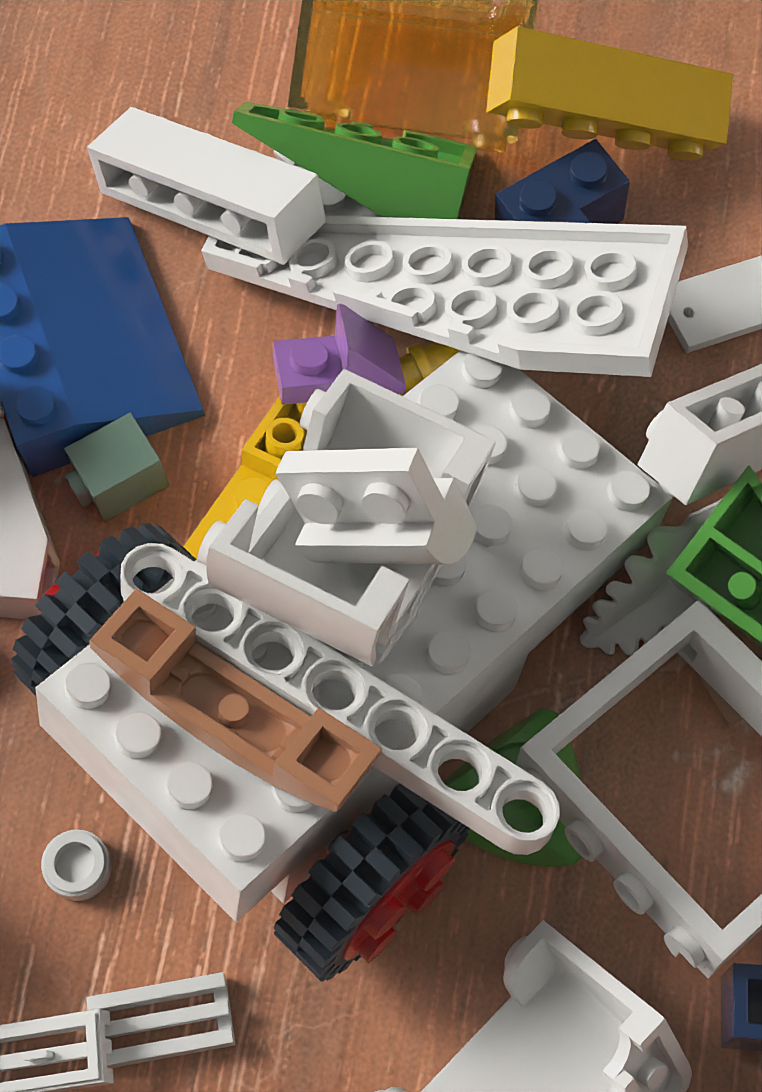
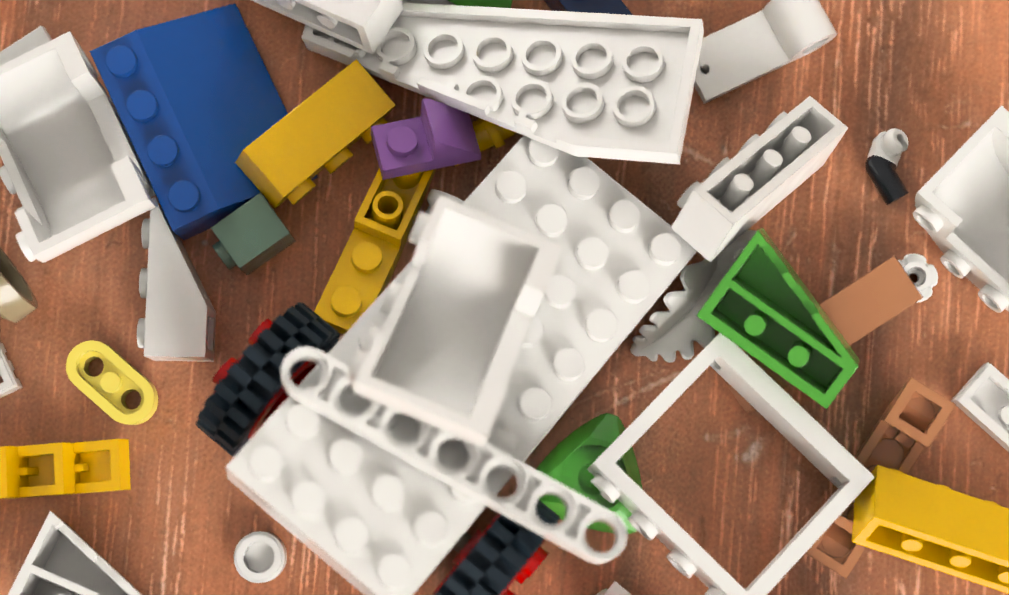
camera: 10 degrees left, 15 degrees up
(202, 352) = (315, 136): none -> yellow brick
(228, 709) = (378, 476): nougat slope -> none
(375, 507) = (476, 322): white brick -> none

